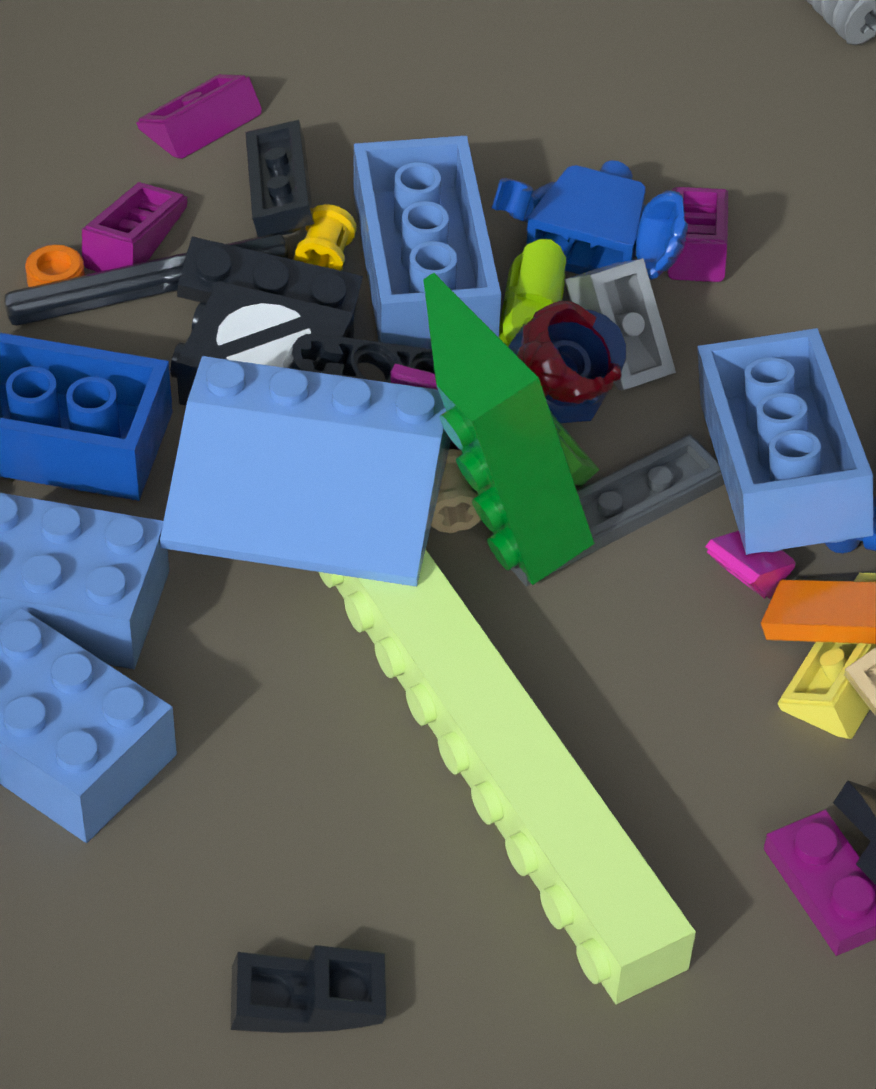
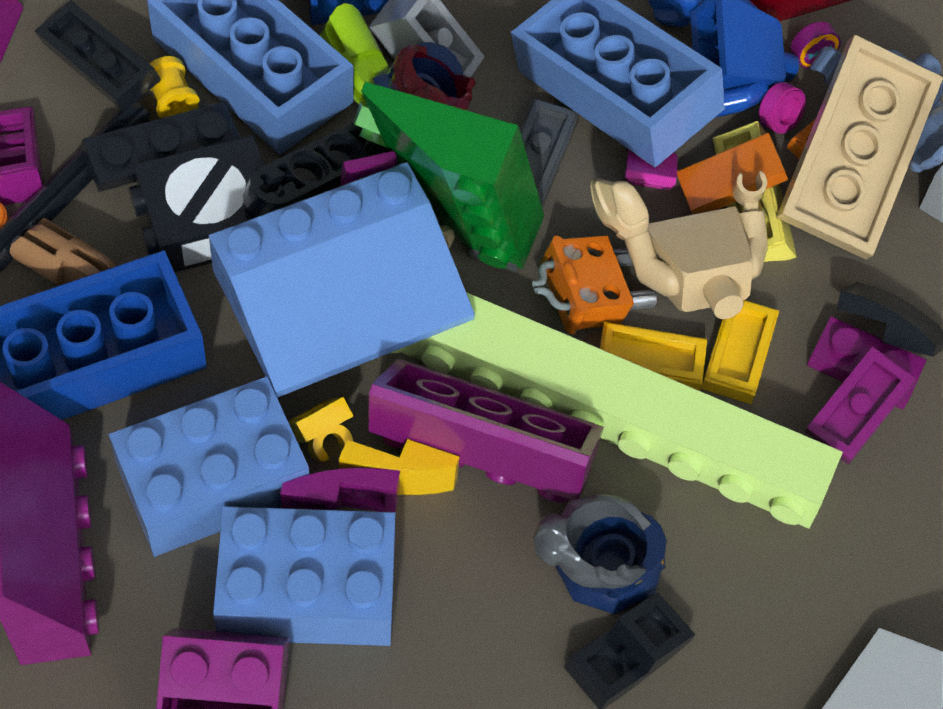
camera: 40 degrees left, 10 degrees up
(89, 322) = (58, 254): none -> medium nougat arm
(159, 670) = (350, 487): none -> magenta slope
(191, 601) = (320, 421): none -> yellow tile
(234, 692) = (420, 466): none -> yellow slope
(336, 692) = (485, 429): none -> magenta slope
(358, 875) = (603, 551): none -> piece
(582, 628) = (588, 282): none -> orange piece
(599, 741) = (663, 352): none -> yellow tile
(696, 788) = (741, 352): none -> yellow tile
(713, 664) = (695, 257): none -> tan torso
(770, 909) = (861, 404): none -> magenta plate

